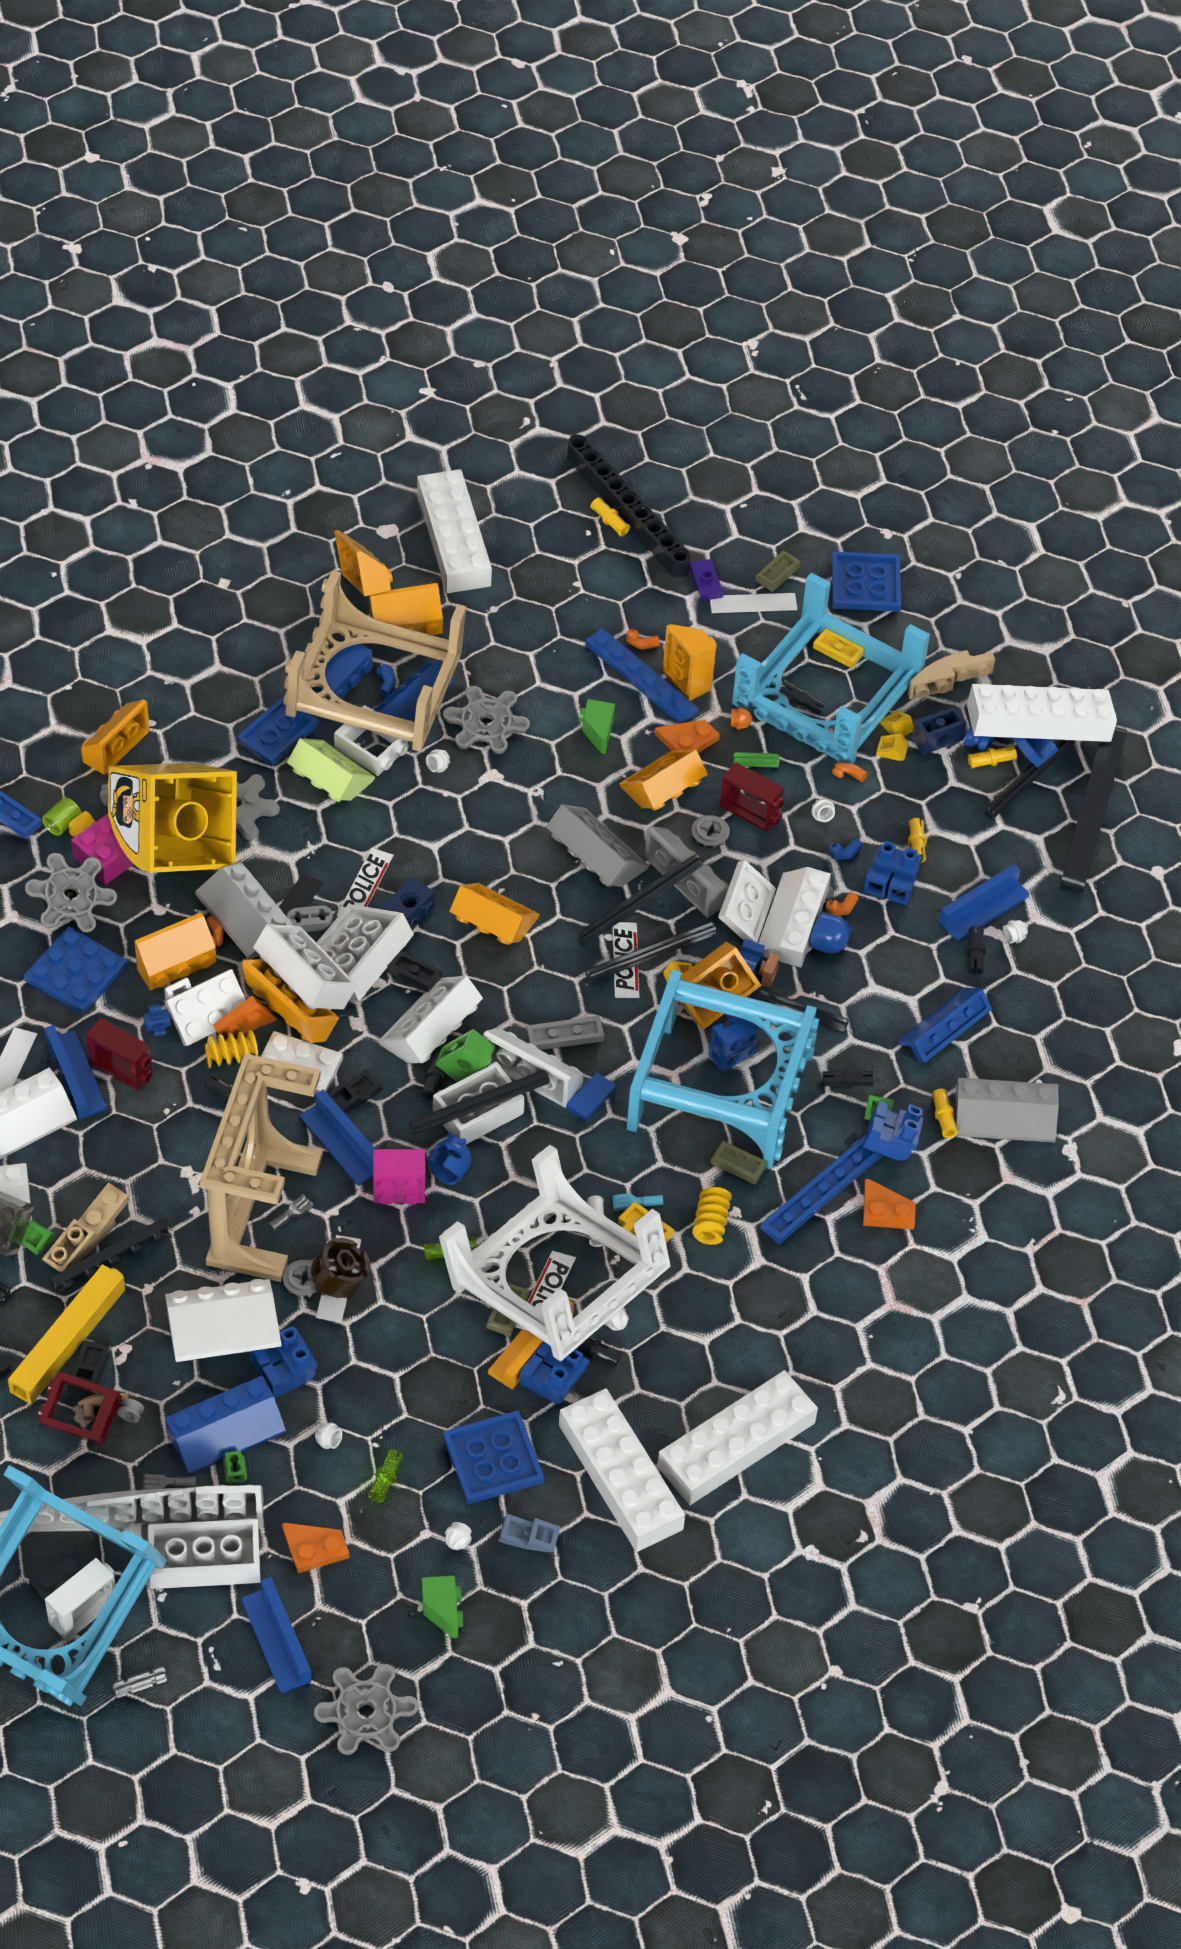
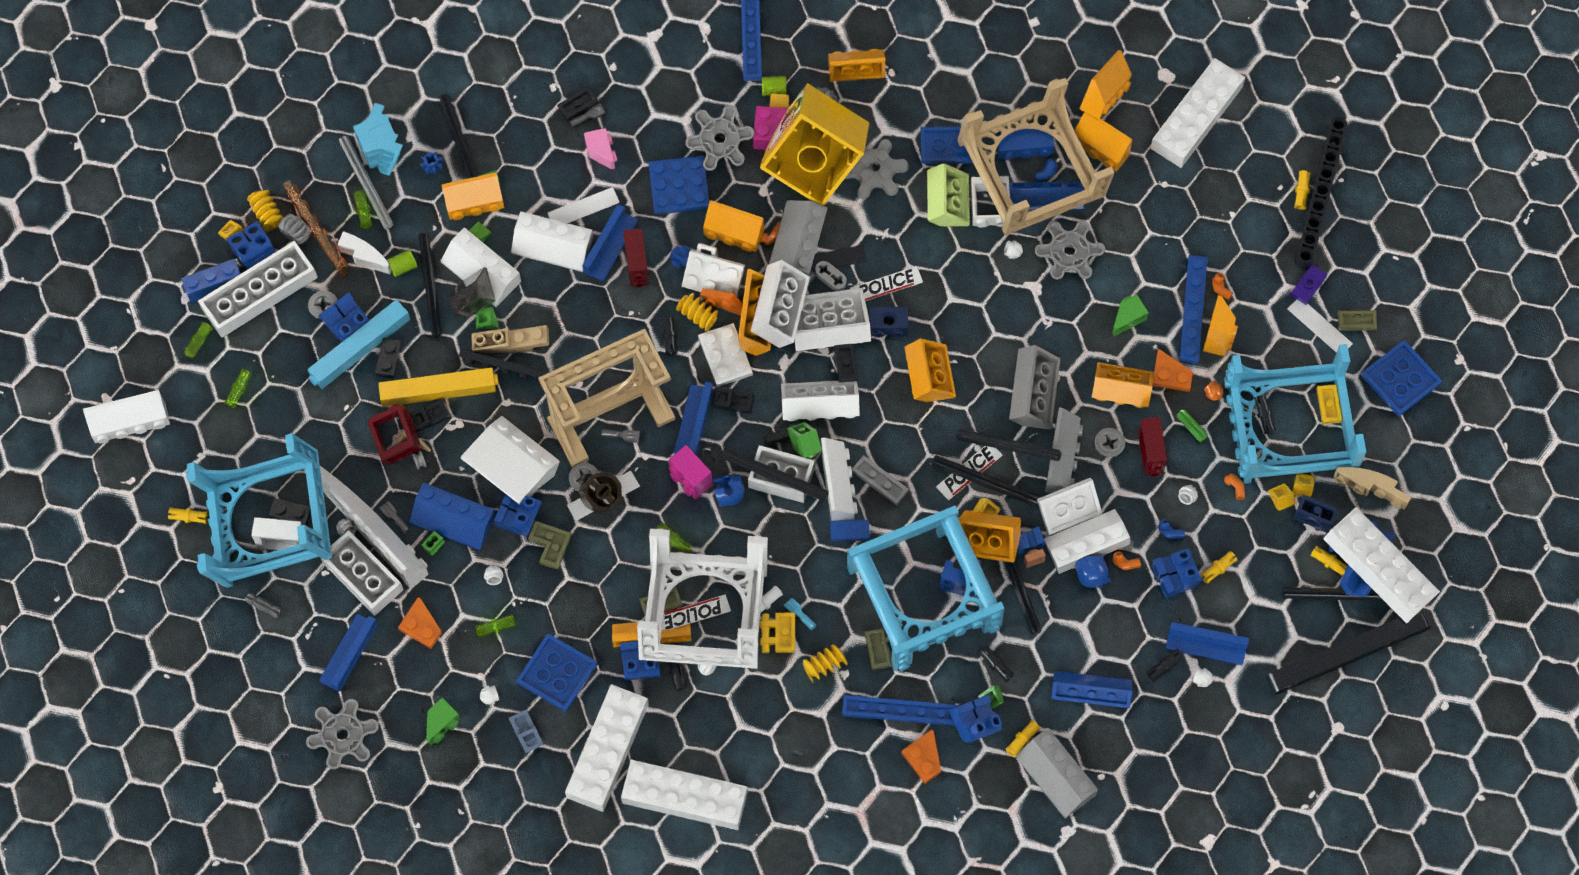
camera: 55 degrees right, 15 degrees up
(347, 1353) = (555, 543): none -> olive plate

